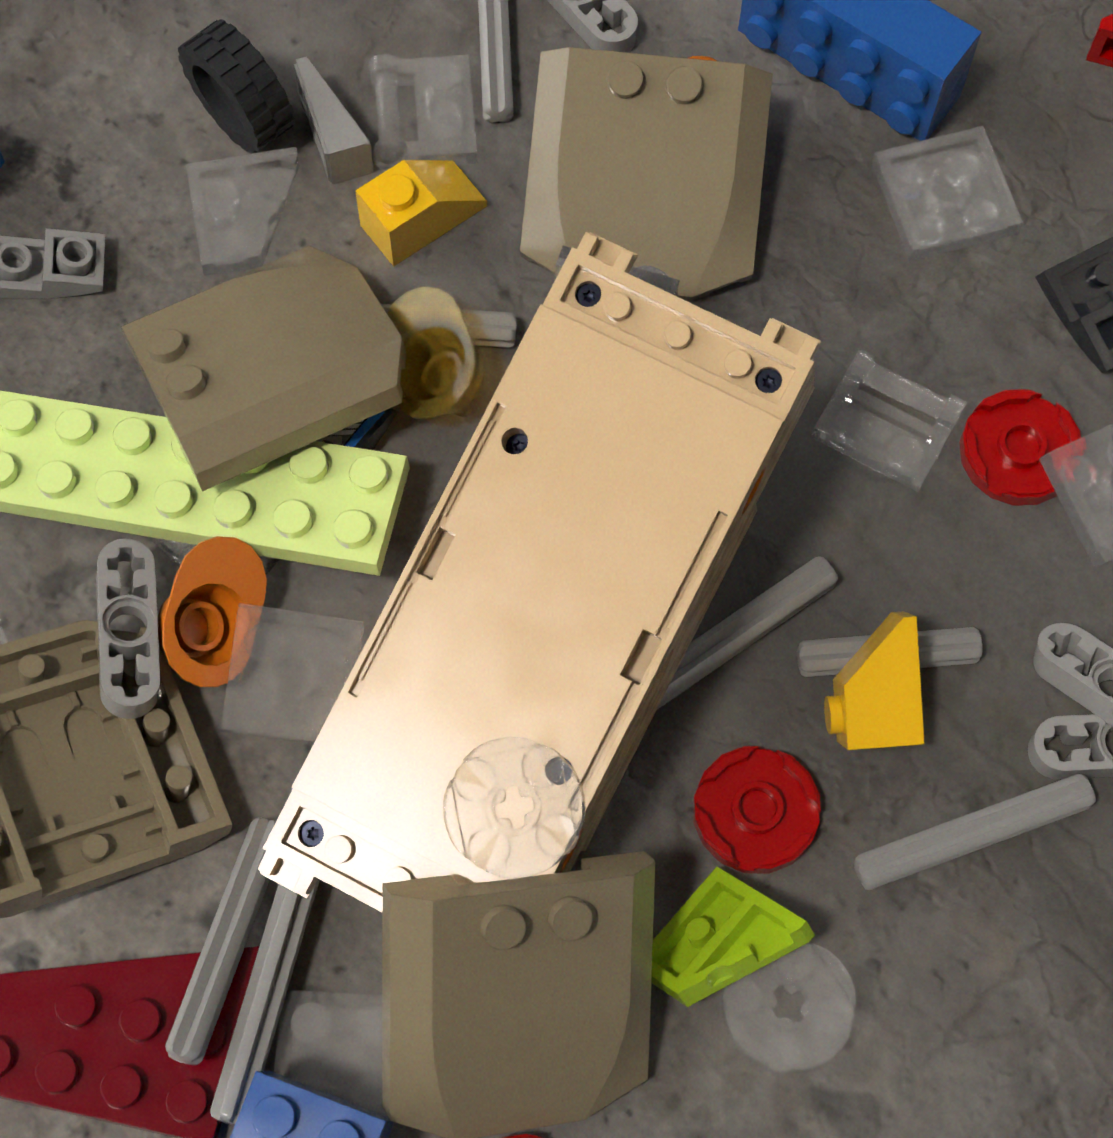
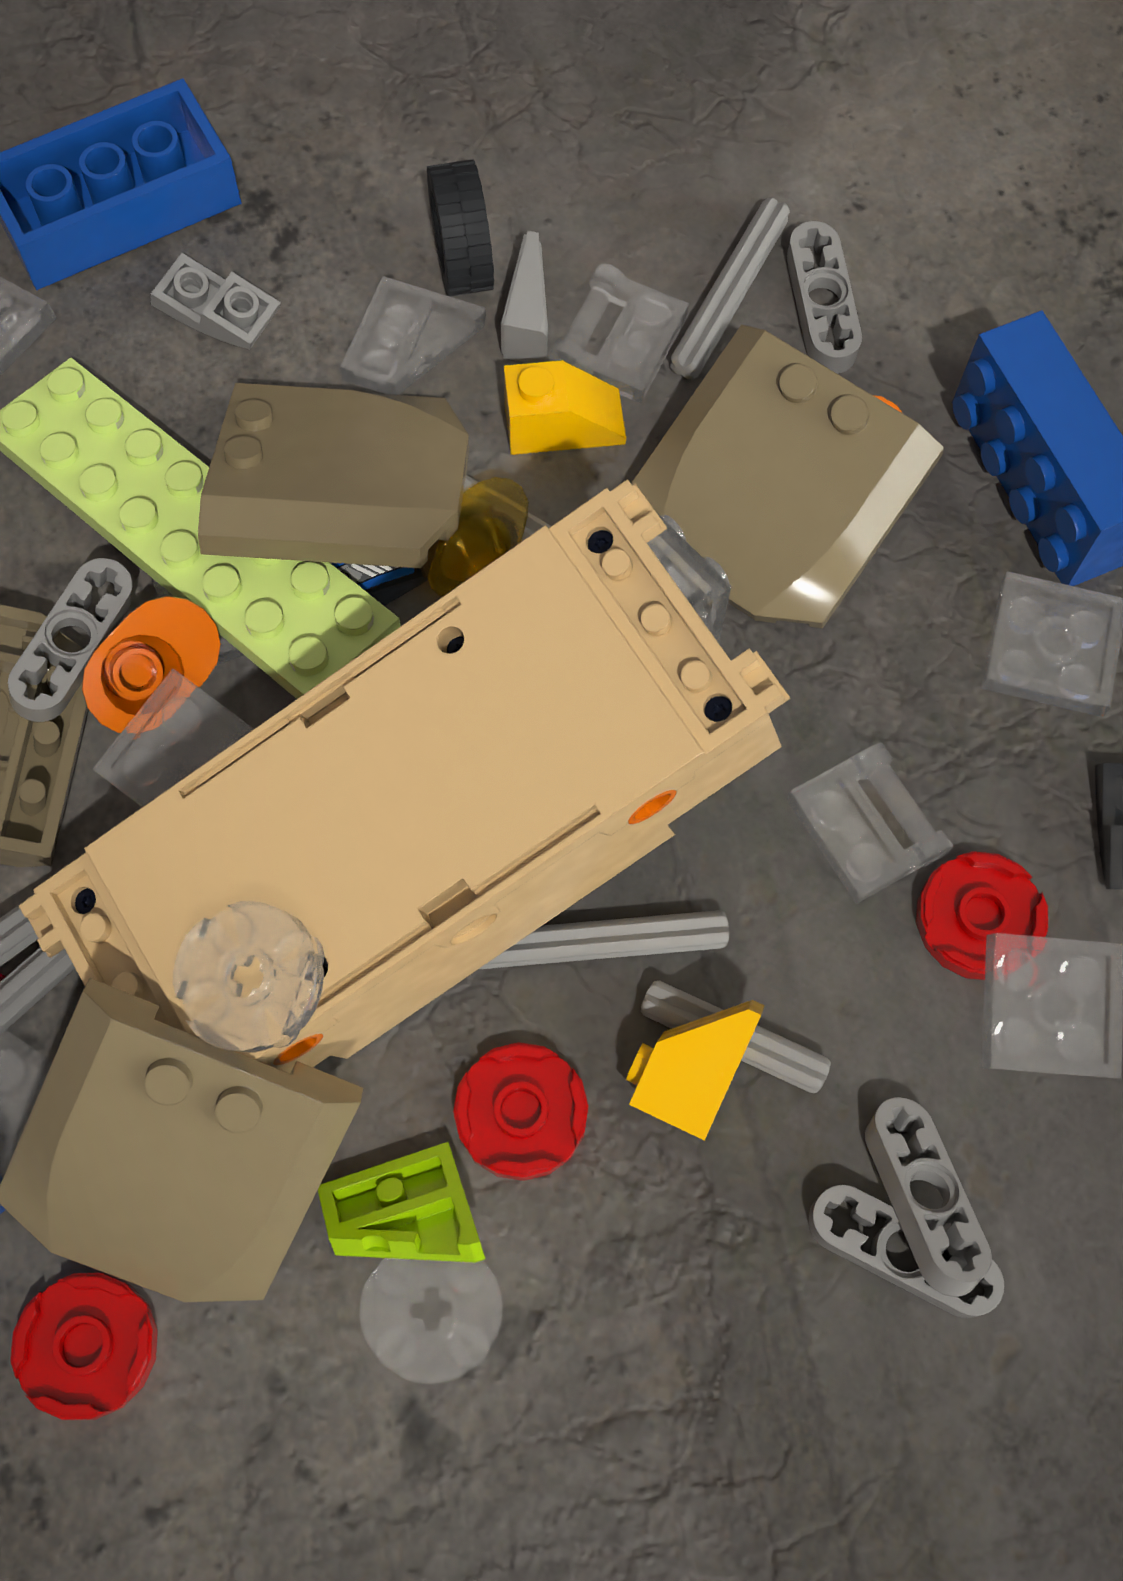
camera: 30 degrees right, 0 degrees up
(974, 831) = (711, 1250): light grey axle -> none

